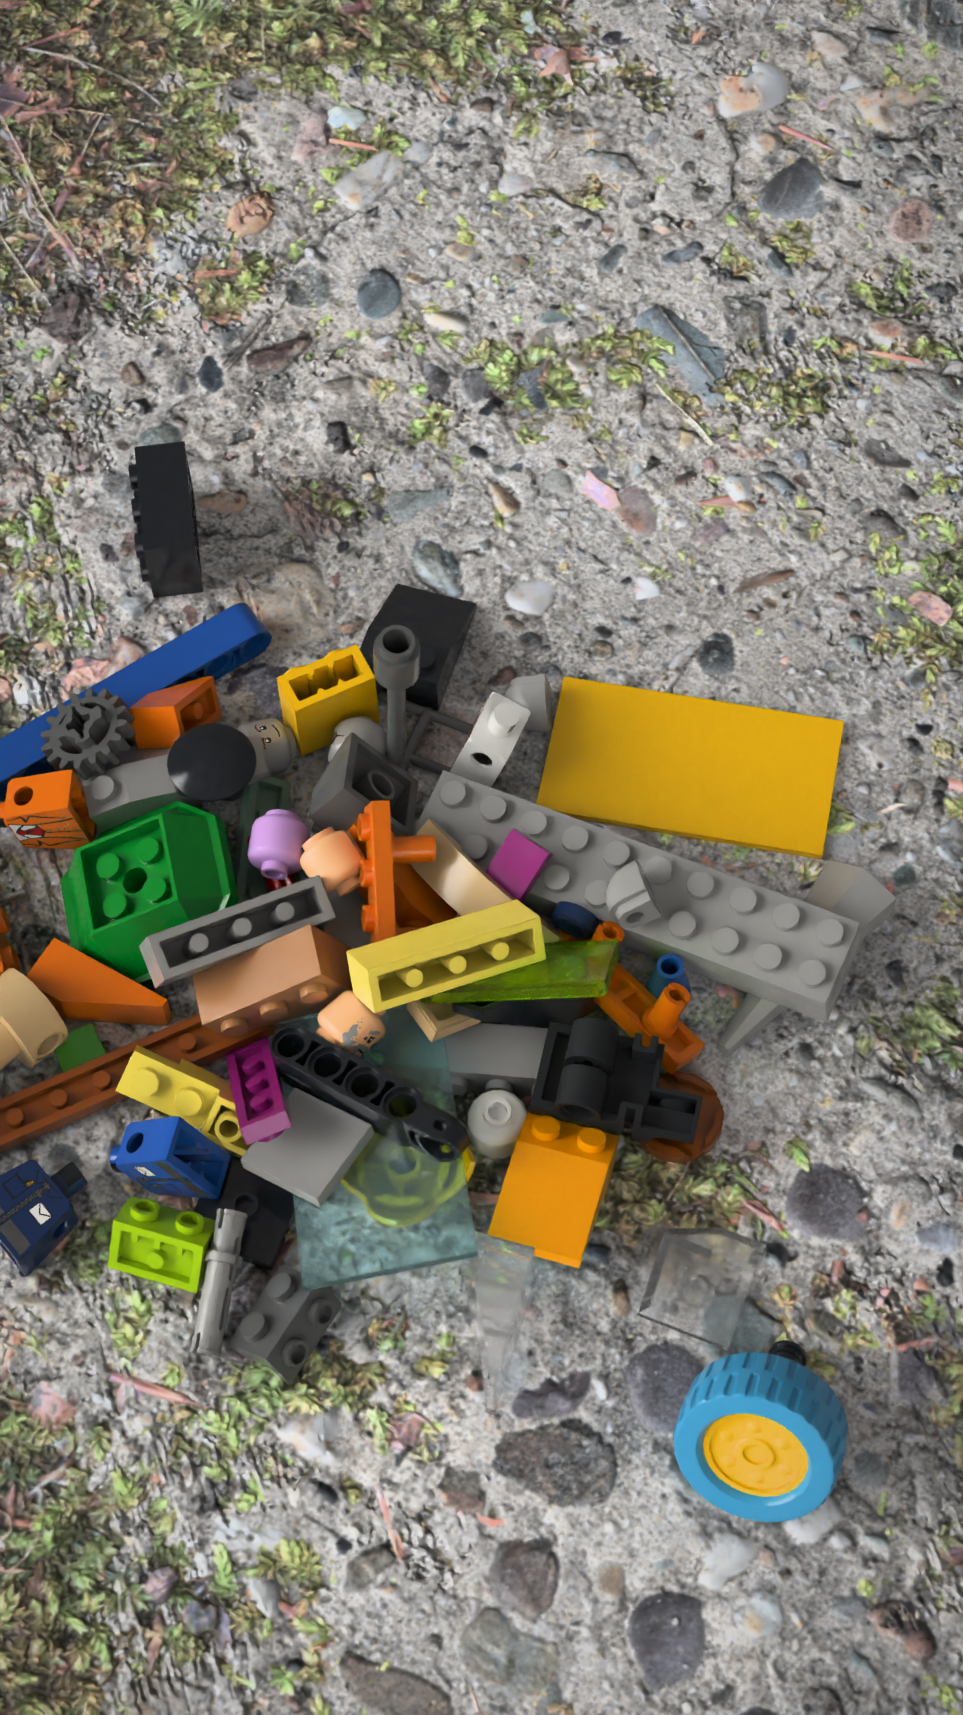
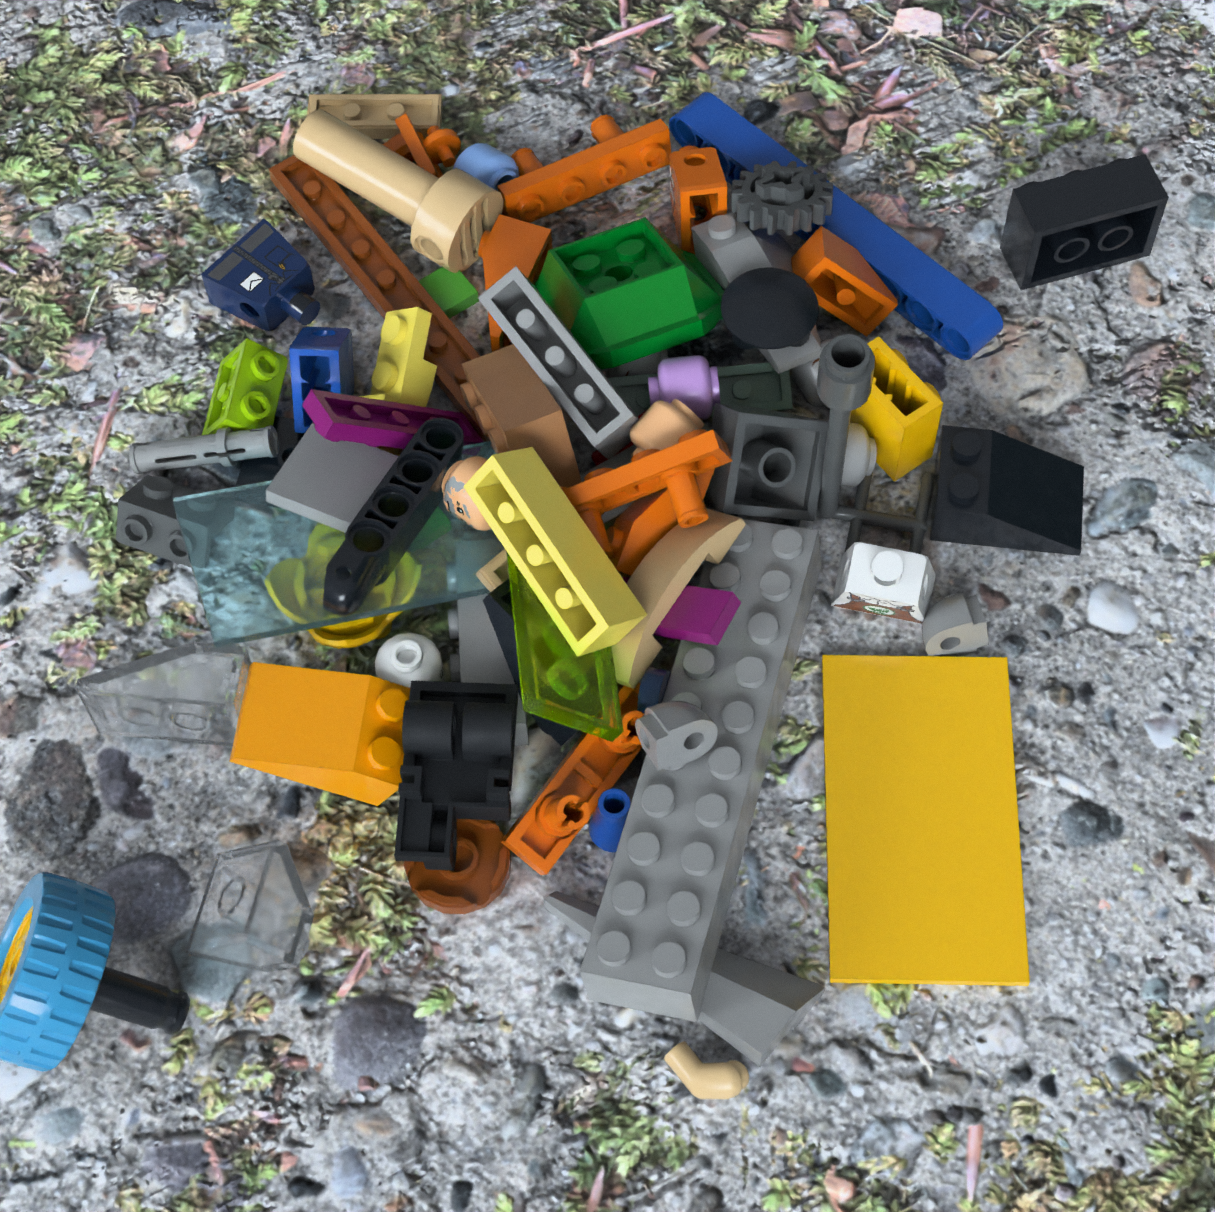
camera: 80 degrees right, 0 degrees up
(896, 955) = (707, 1080): none -> tan arm

